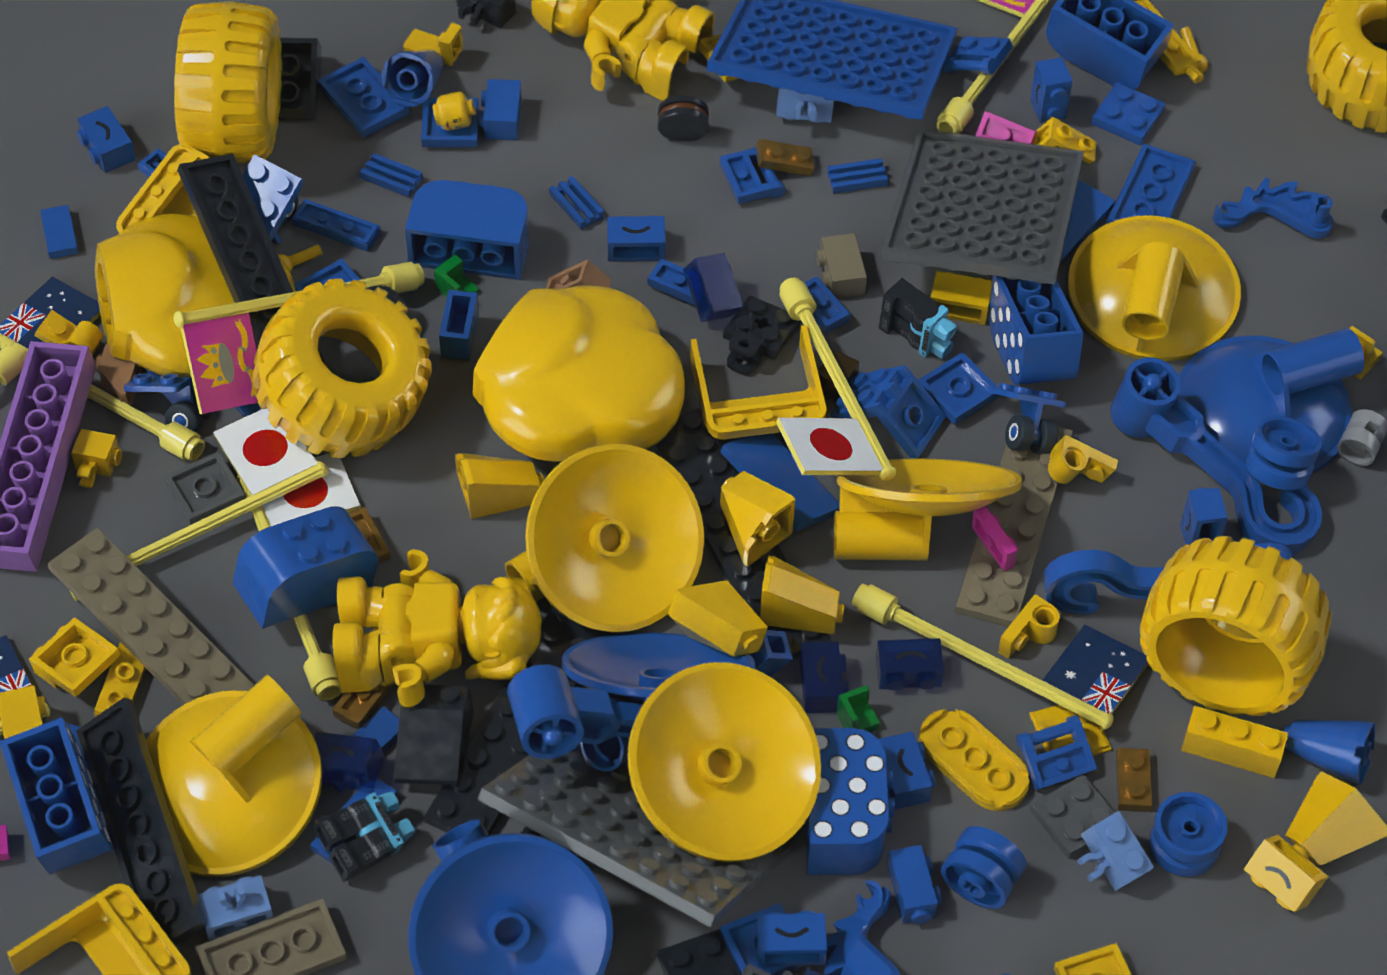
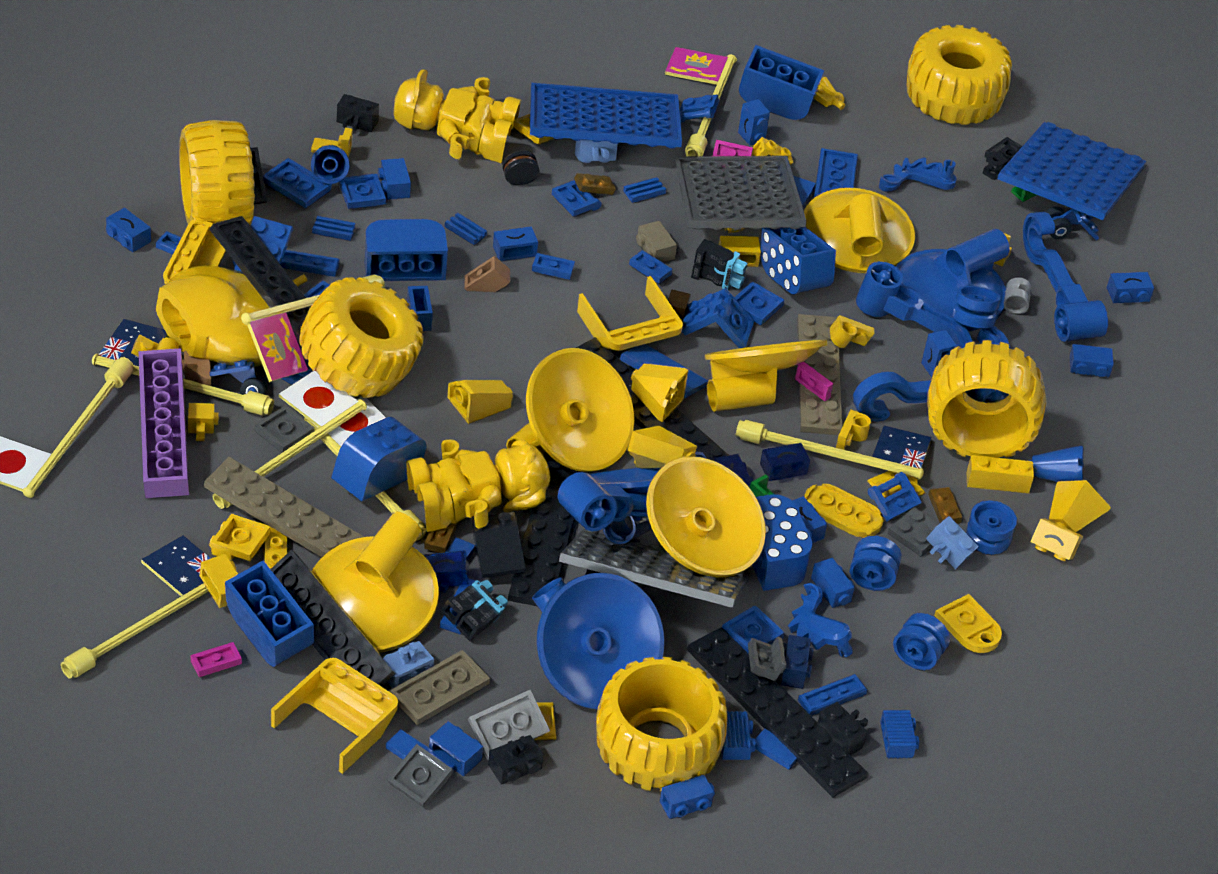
camera: 20 degrees left, 10 degrees down
(59, 231) = (117, 291): blue tile -> none
(451, 277) = (399, 283): green panel -> none
(453, 111) = (366, 181): yellow head -> none
(578, 374) = (515, 320): yellow plant -> none
(713, 287) = (579, 264): clear blue brick -> none
(751, 342) = (616, 288): black plate -> none
(791, 938) = (772, 620): blue brick -> none
(798, 600) = (706, 432): yellow slope -> none
(829, 444) = (693, 338): flag -> none
(1029, 428) = (810, 318): plate -> none
(1128, 113) = (804, 132): blue plate -> none

